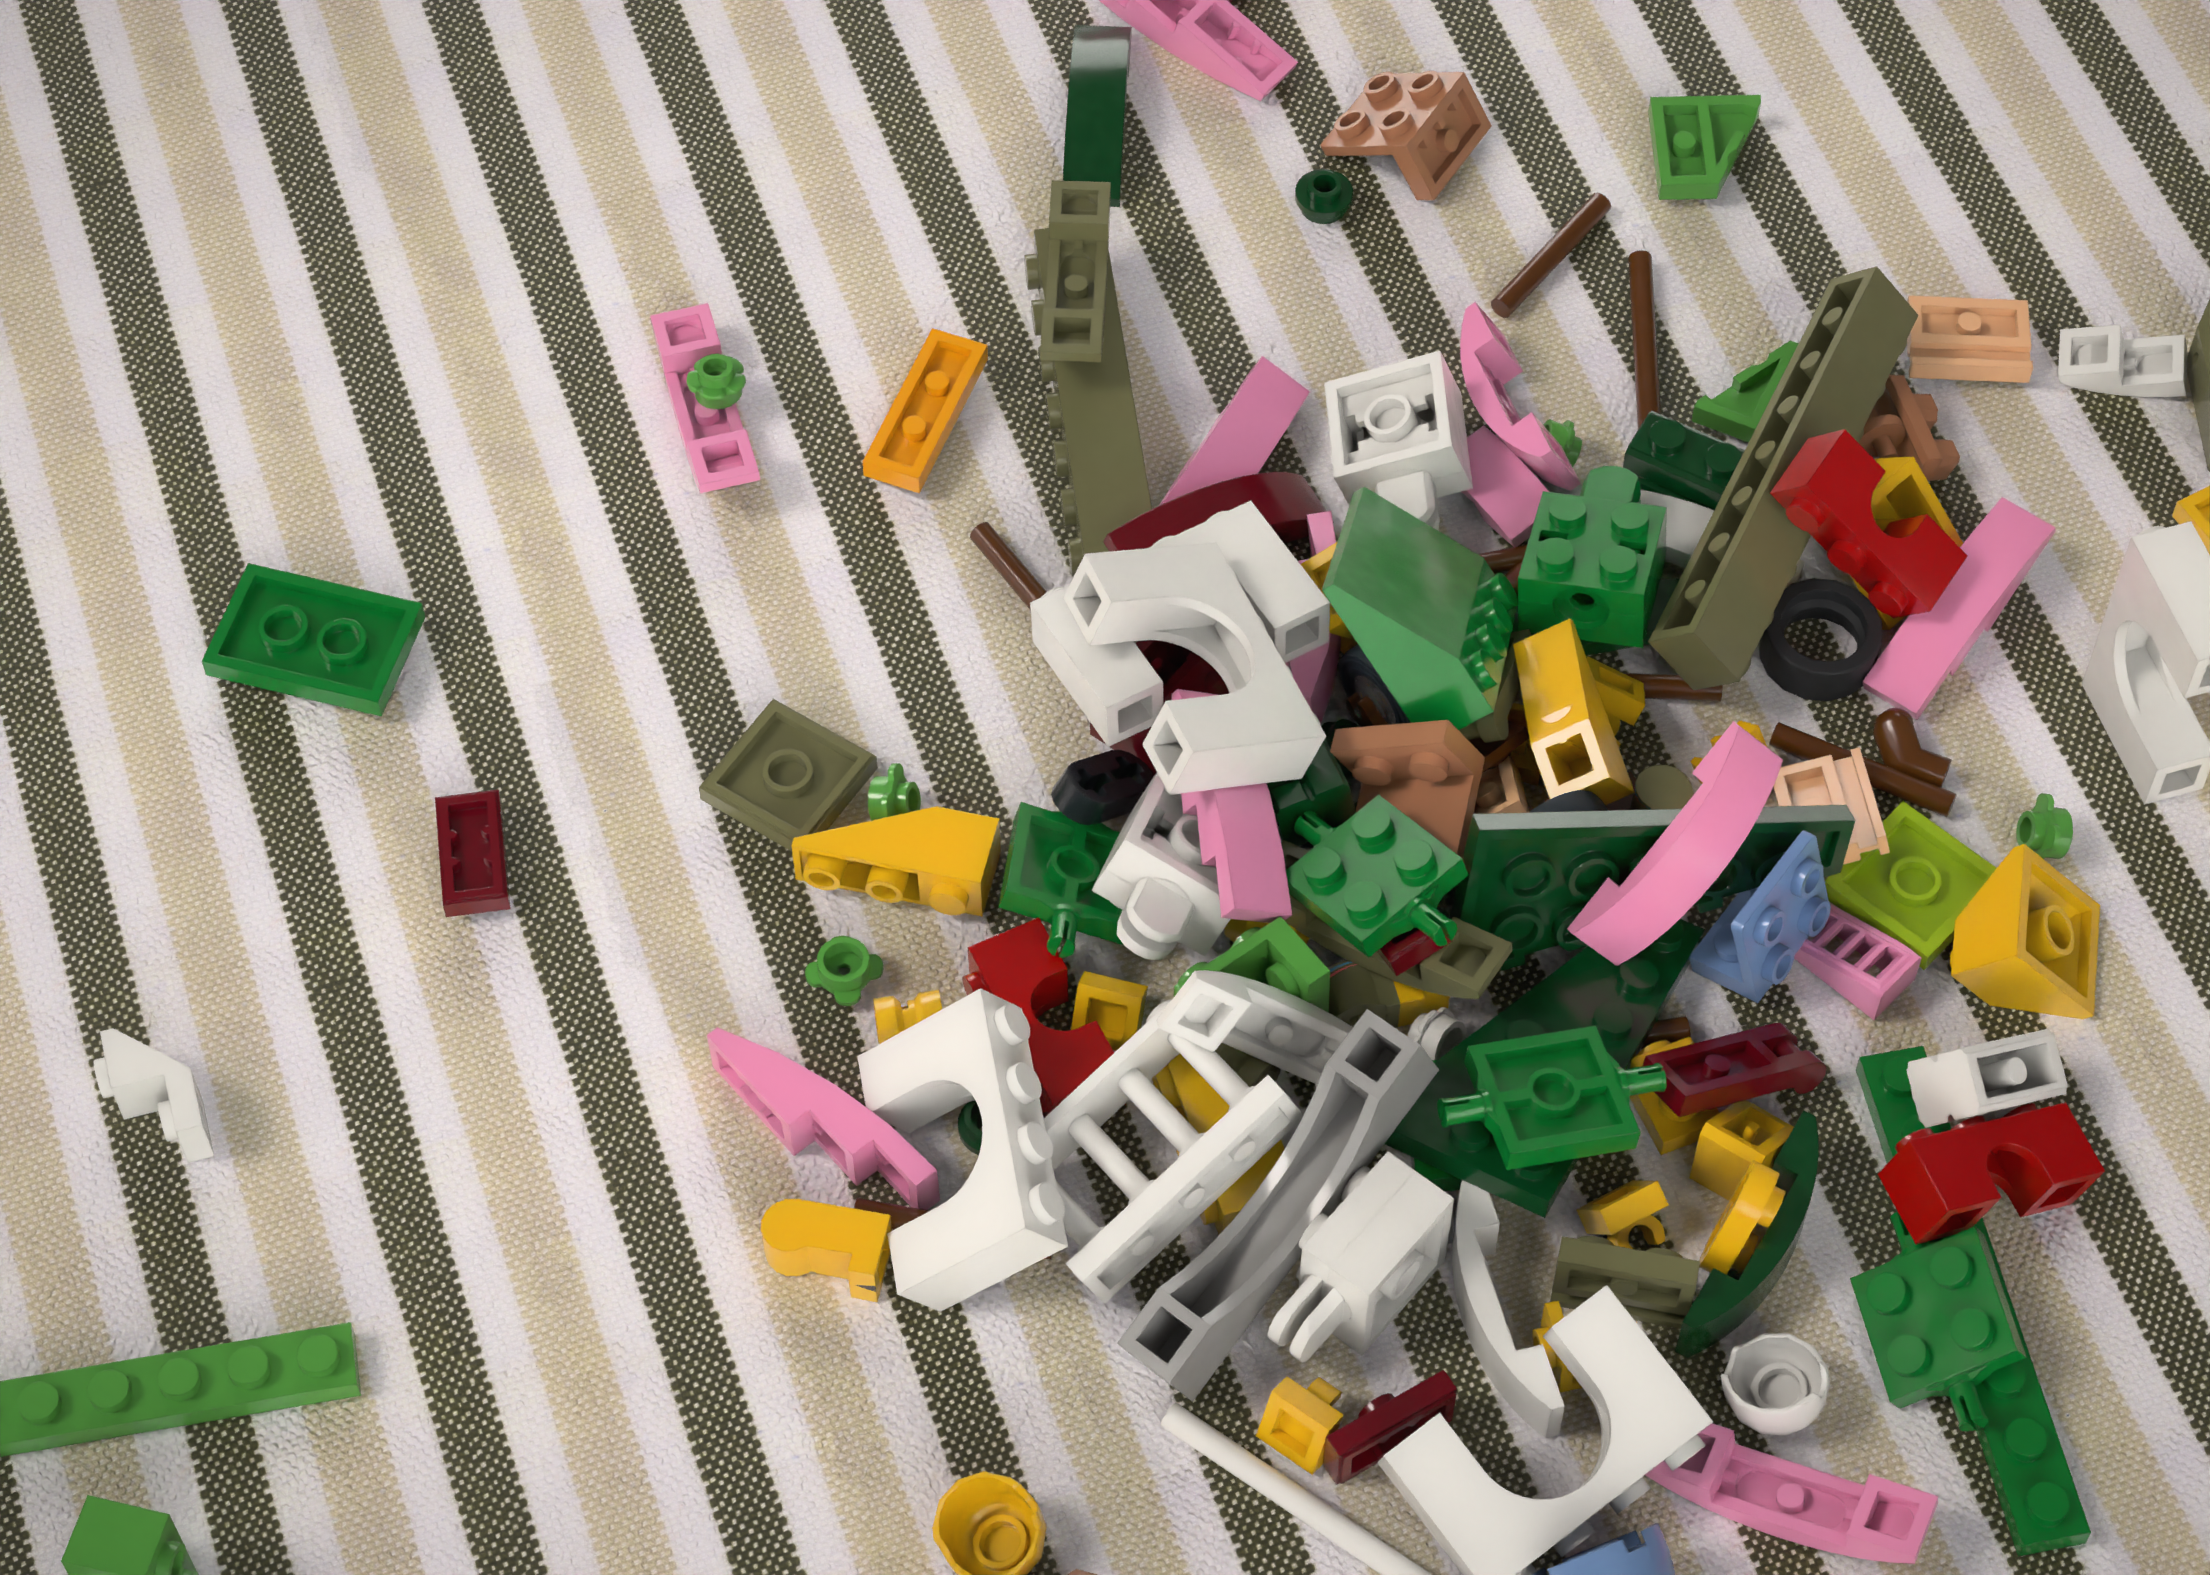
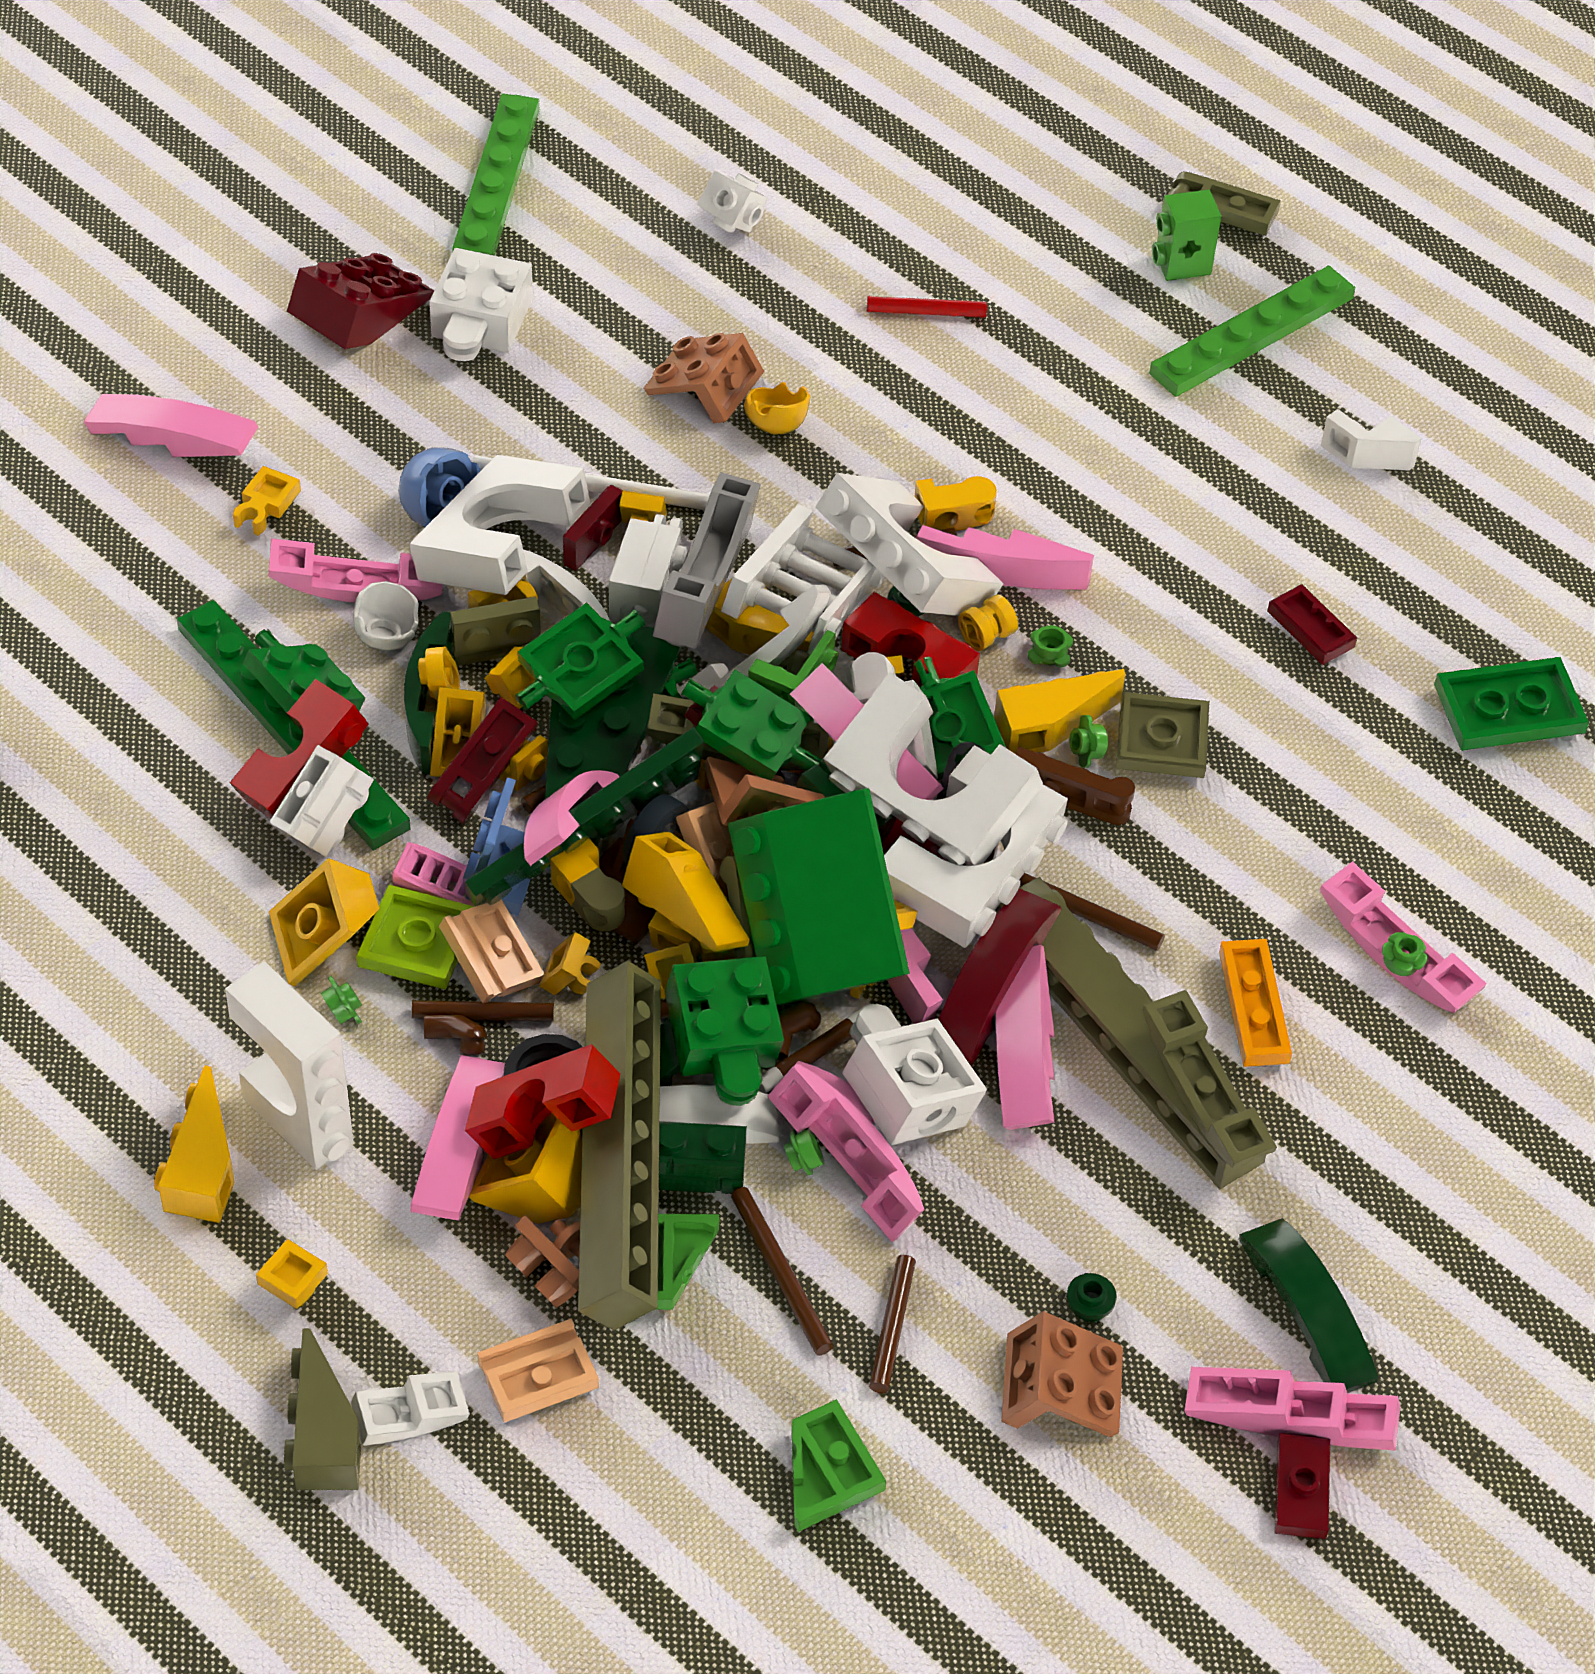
camera: 150 degrees right, 5 degrees down
(957, 745) = (1086, 791): none -> reddish brown plate

